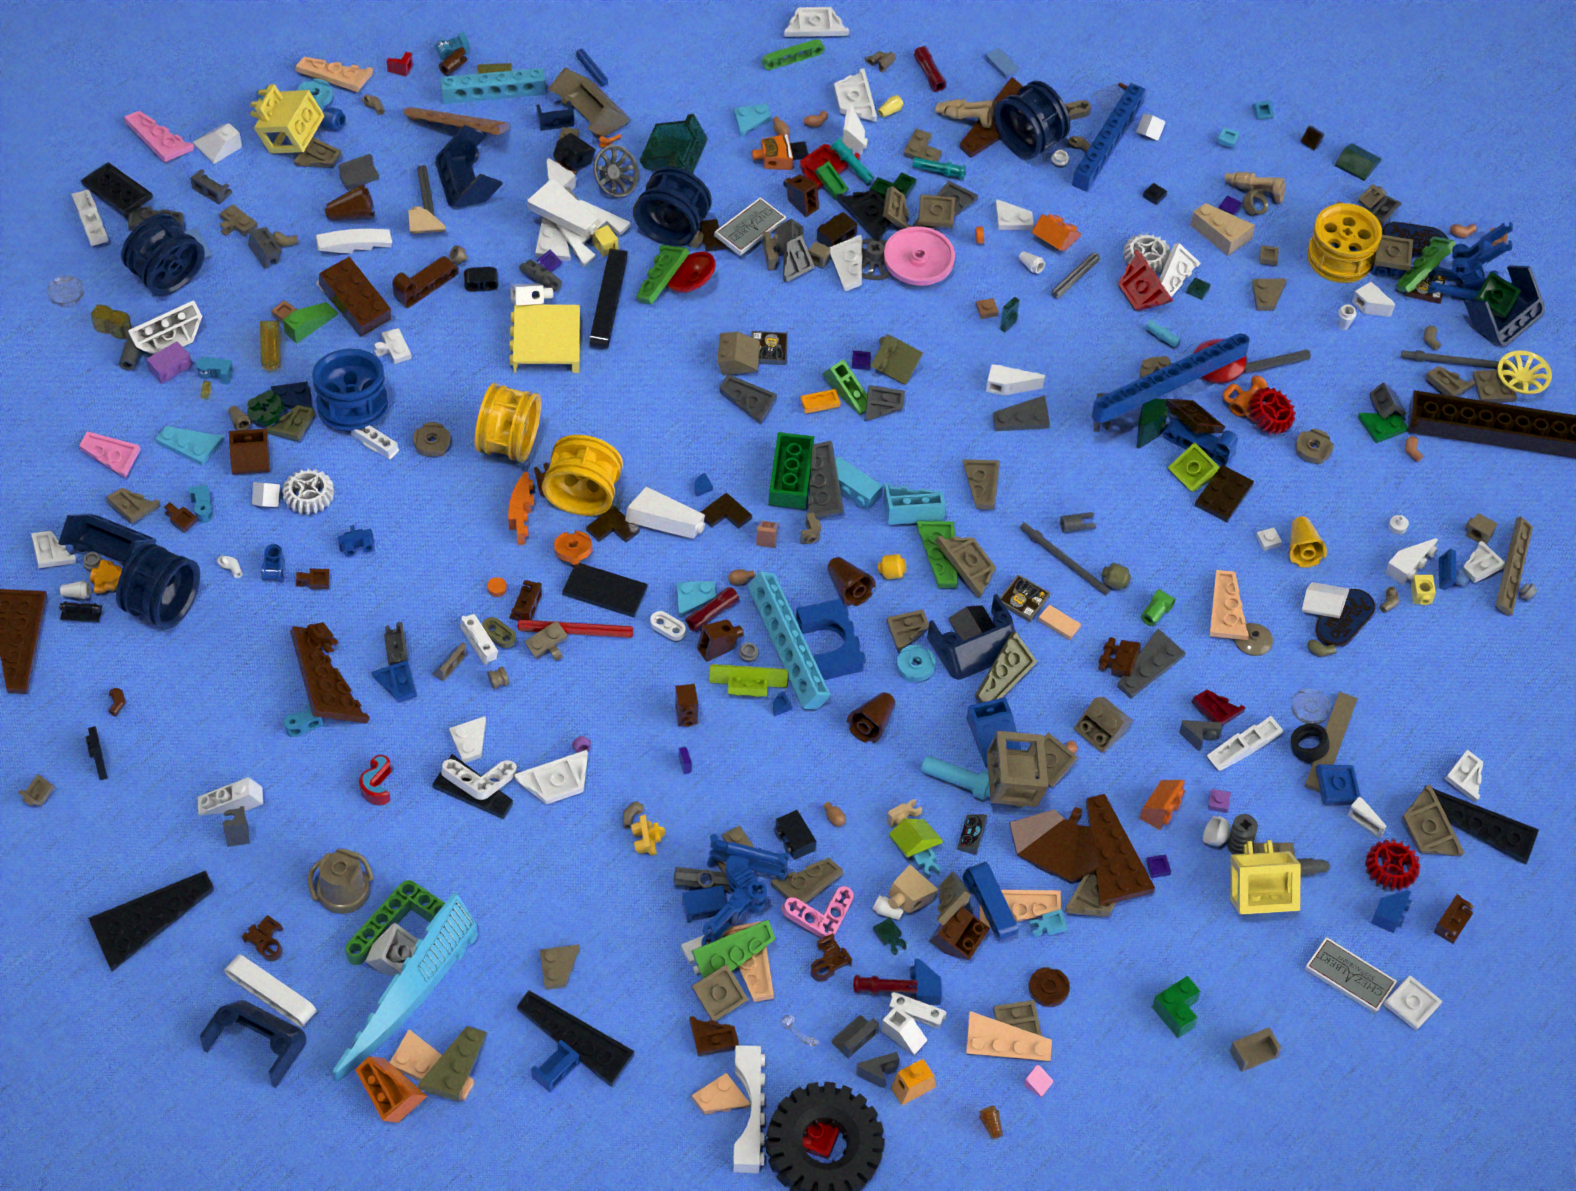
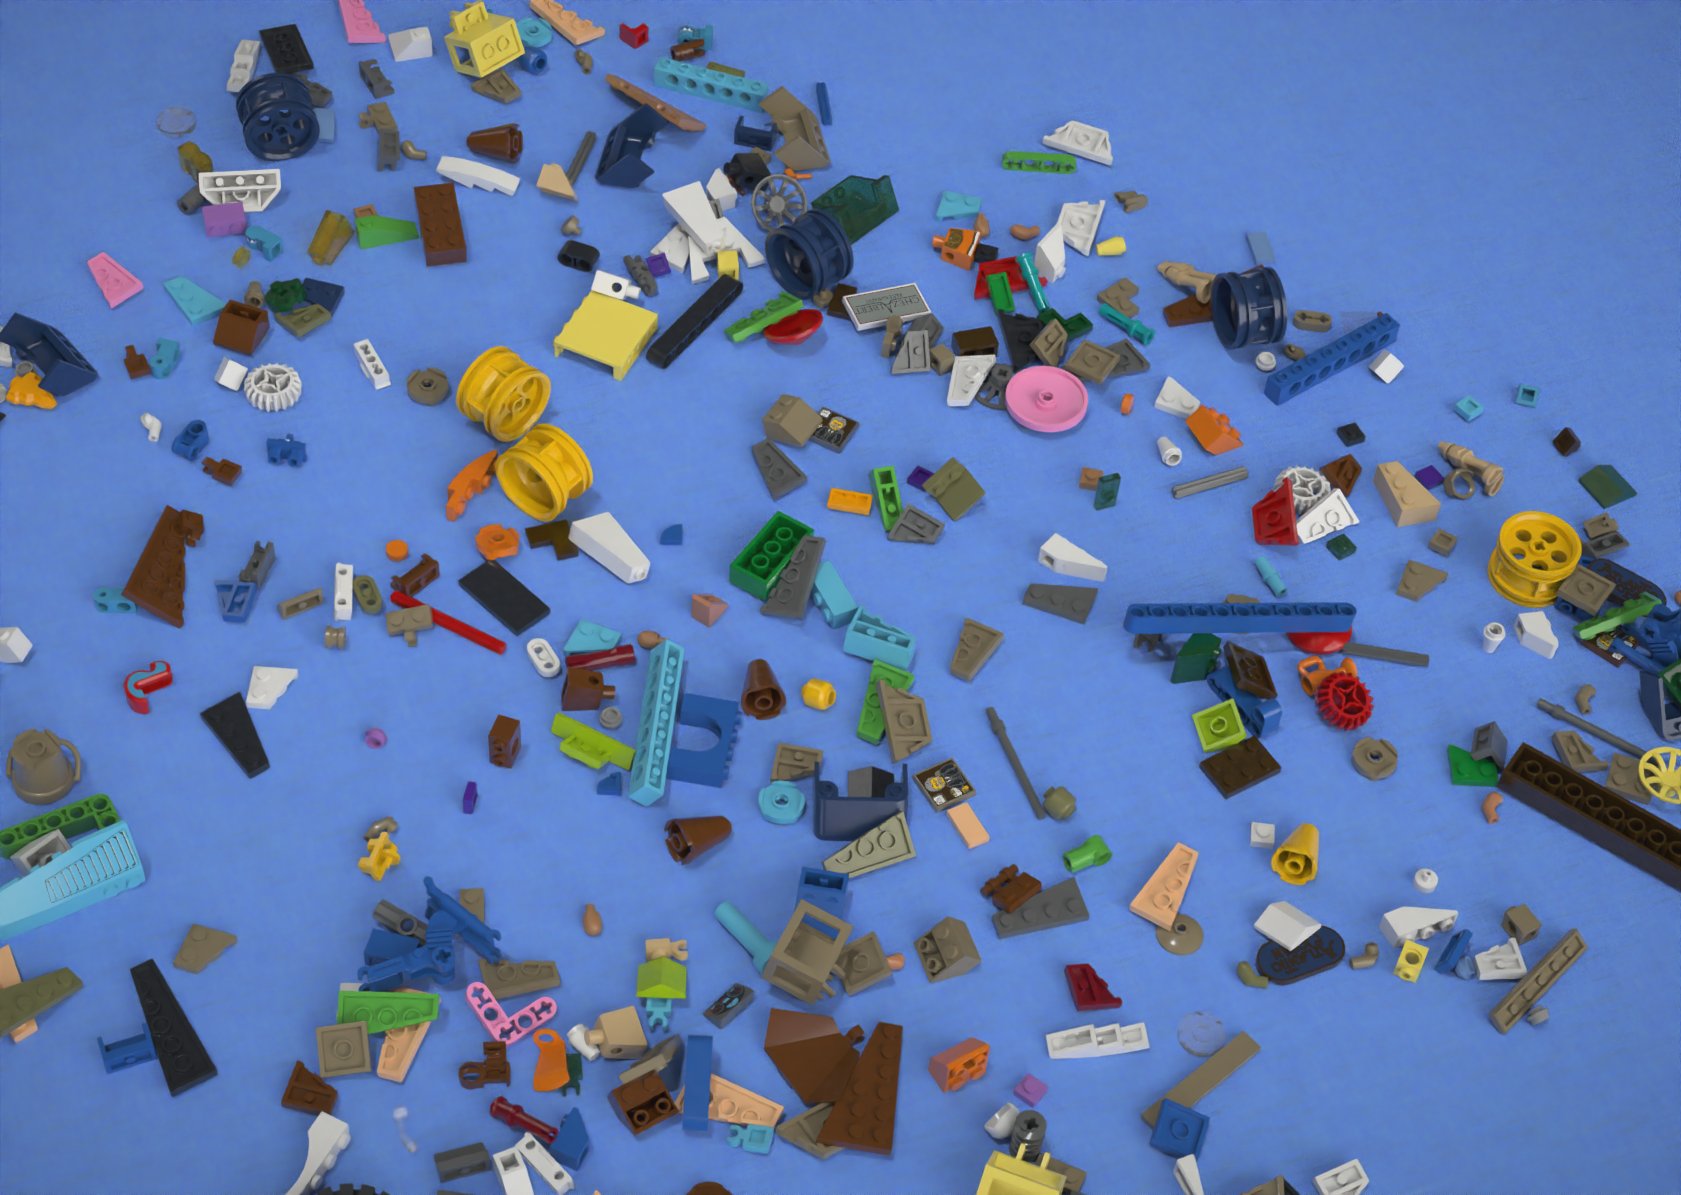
camera: 25 degrees right, 5 degrees down
(131, 505) = (98, 334): dark tan wing -> none
(158, 585) = (45, 396): dark blue wheel -> none
(358, 172) = (527, 114): dark grey panel -> none
(360, 389) = (372, 305): blue wheel -> none
(394, 345) = (452, 287): white plate -> none
(414, 289) = (519, 238): reddish brown beam -> none
(455, 771) = (243, 735): white beam -> none
(557, 778) = (328, 760): white wing -> none
(720, 1096) = (275, 1158): light nougat wing -> none
(727, 508) = (680, 566): dark brown tile -> none
(795, 835) = (534, 923): black brick -> none
(802, 194) = (960, 288): reddish brown torso -> none
(813, 530) = (754, 627): dark tan bracket -> none
(874, 934) = (552, 1063): none -> orange piece
(934, 77) = (1177, 234): dark red axle -> none
(1074, 522) = (1047, 728): dark grey hinge -> none
(1158, 866) = (916, 1131): dark purple tile -> none
(1169, 228) = (1342, 473): none -> reddish brown wing
(1197, 730) = (1048, 1002): dark grey slope -> none
(1314, 753) = (1168, 1057): black tyre -> none

